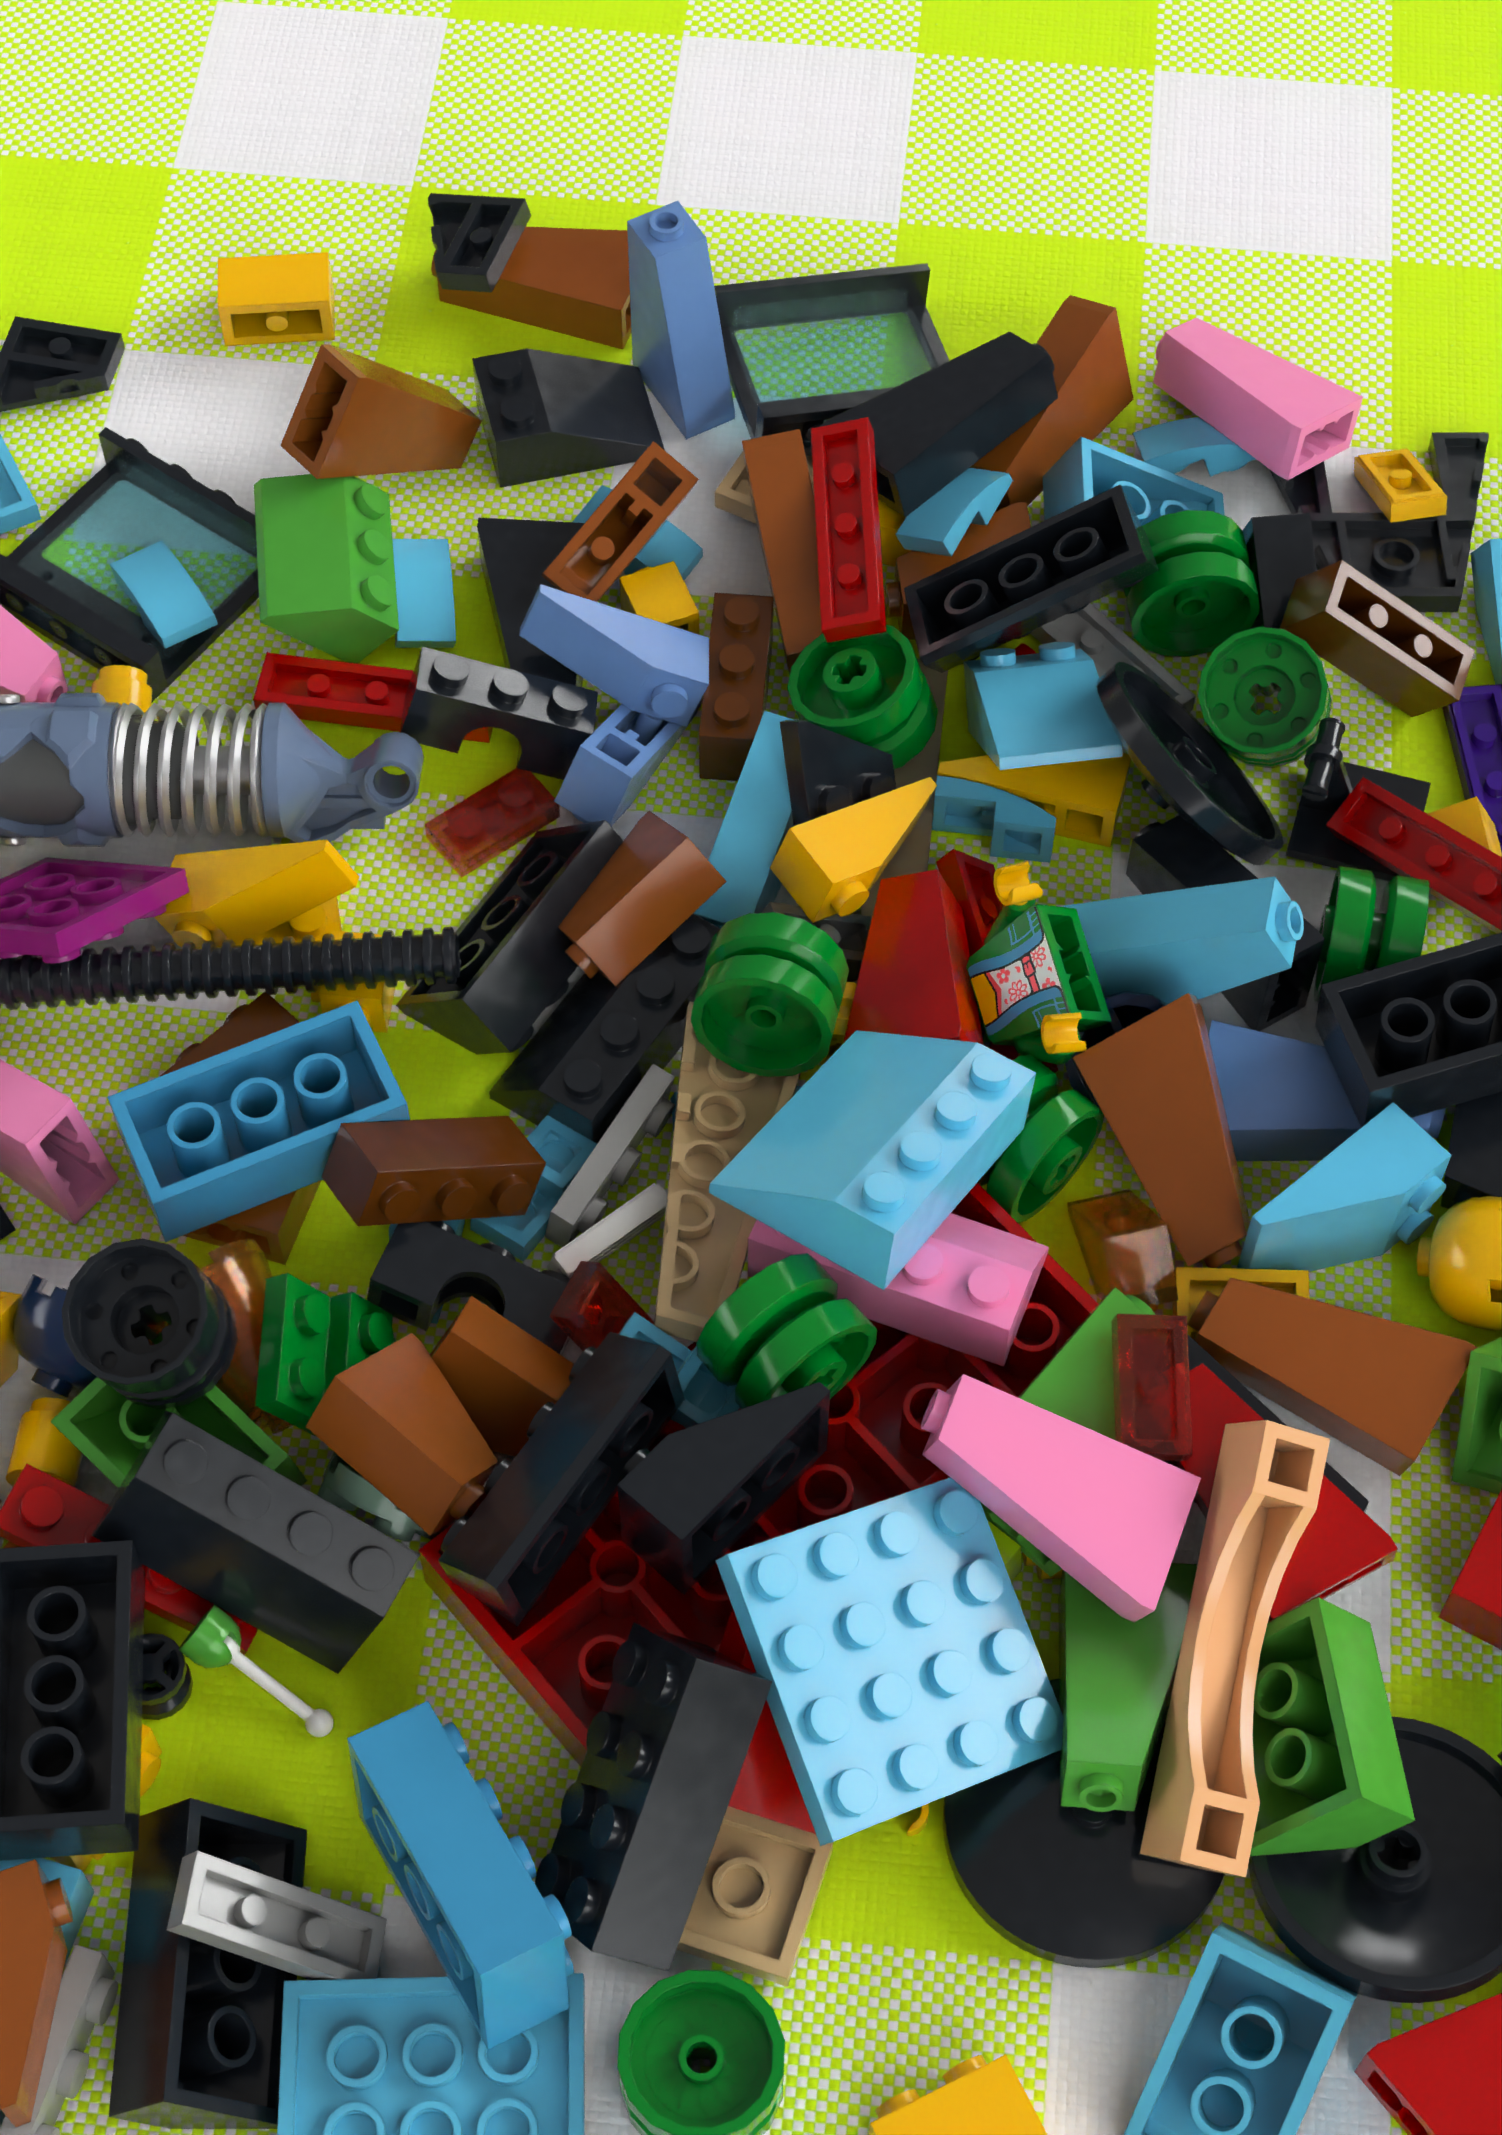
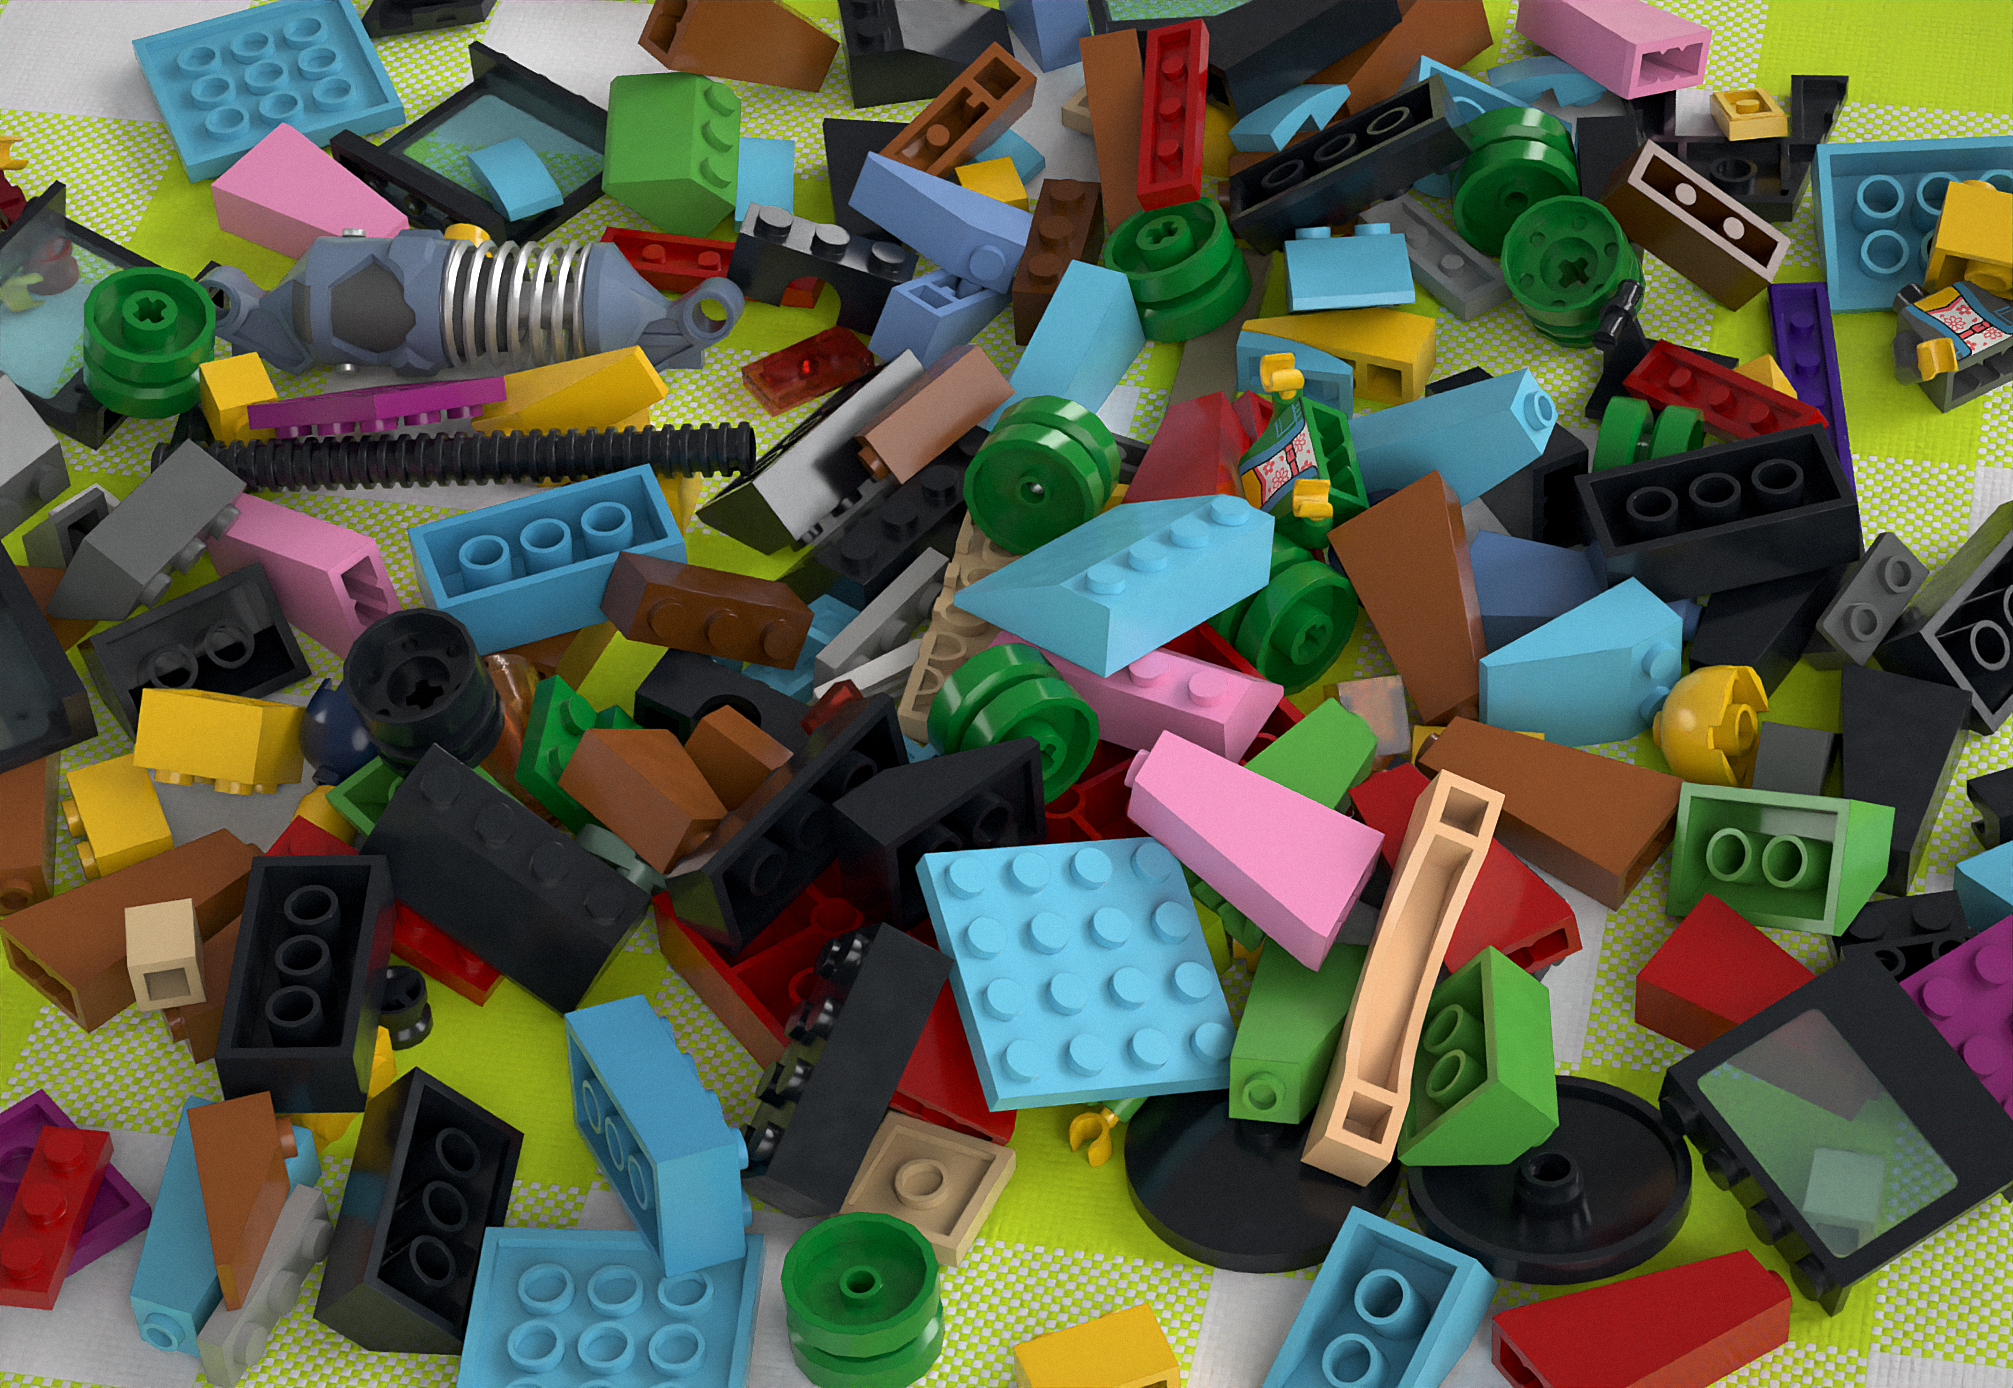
camera: 10 degrees right, 15 degrees down
(217, 1643) = (456, 970): hinge -> none
(274, 1921) = (479, 1168): light grey plate -> none
(830, 770) = (1136, 322): black wing -> none
(840, 856) = (1139, 378): yellow slope -> none
(1152, 1385) = (1354, 763): clear red plate -> none
(1187, 765) = (1476, 313): black dish -> none

